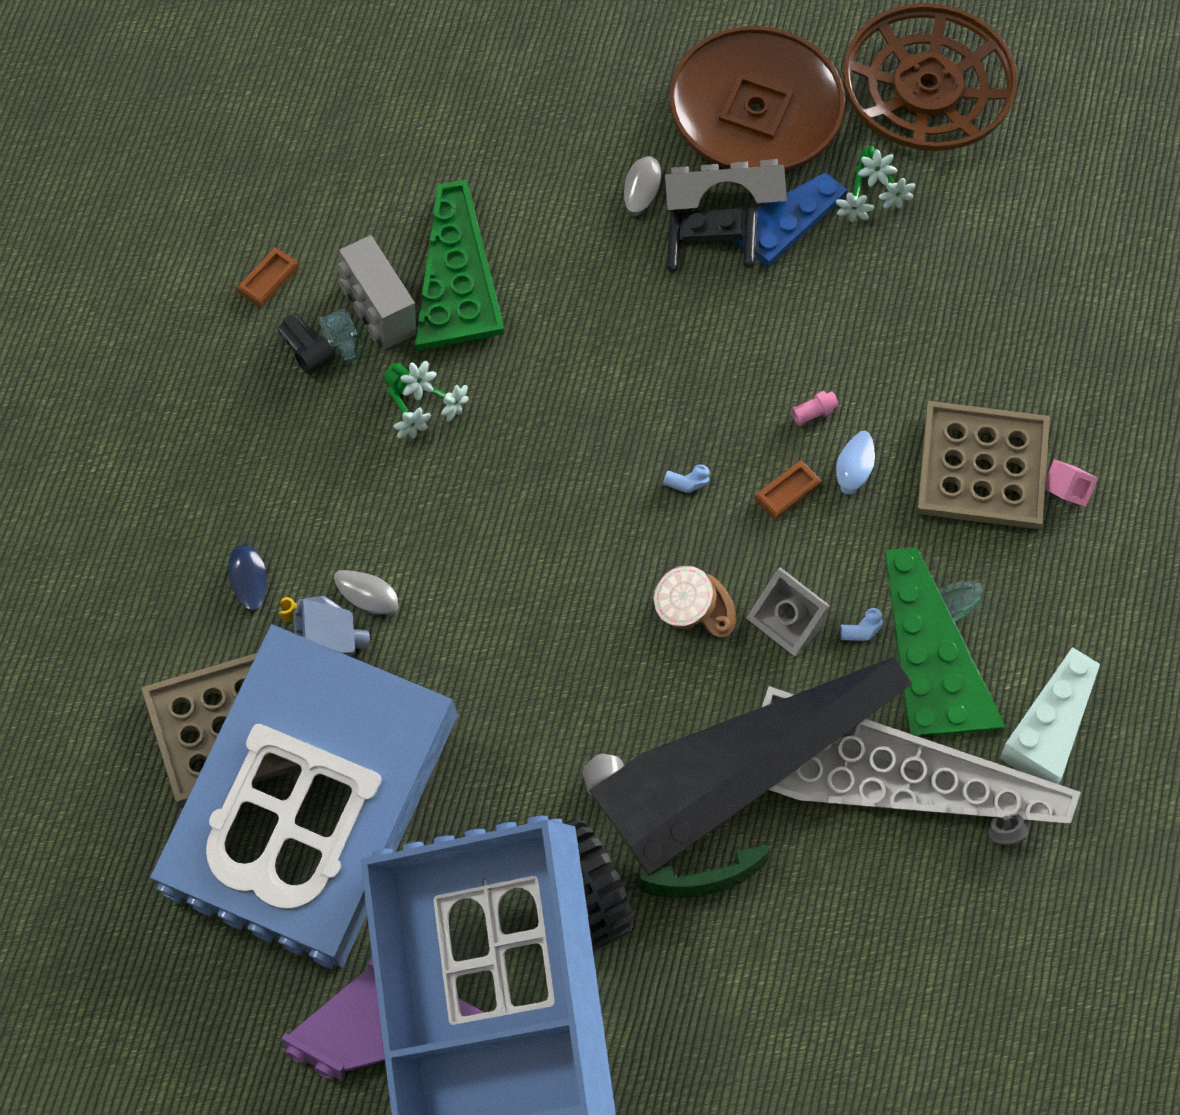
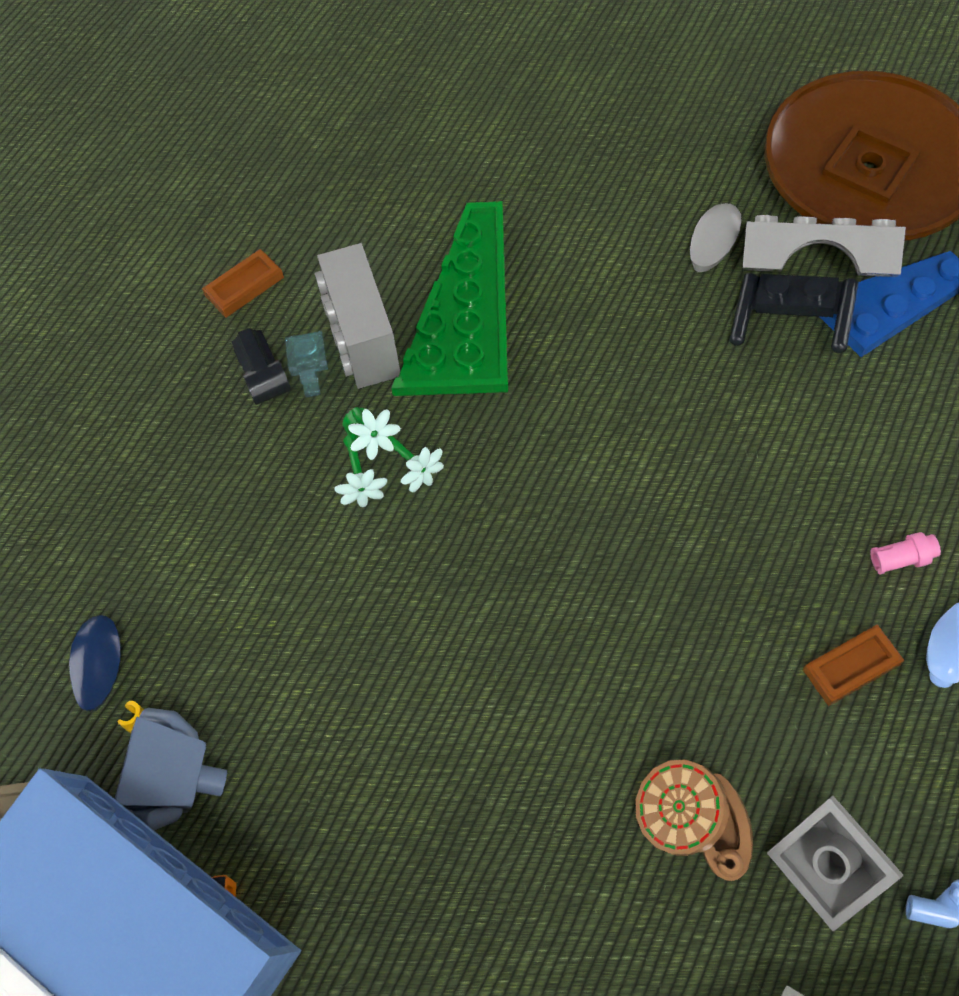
camera: 20 degrees right, 0 degrees up
(367, 592) = (242, 712): light grey arm -> none
(690, 482) = (715, 630): light blue arm -> none

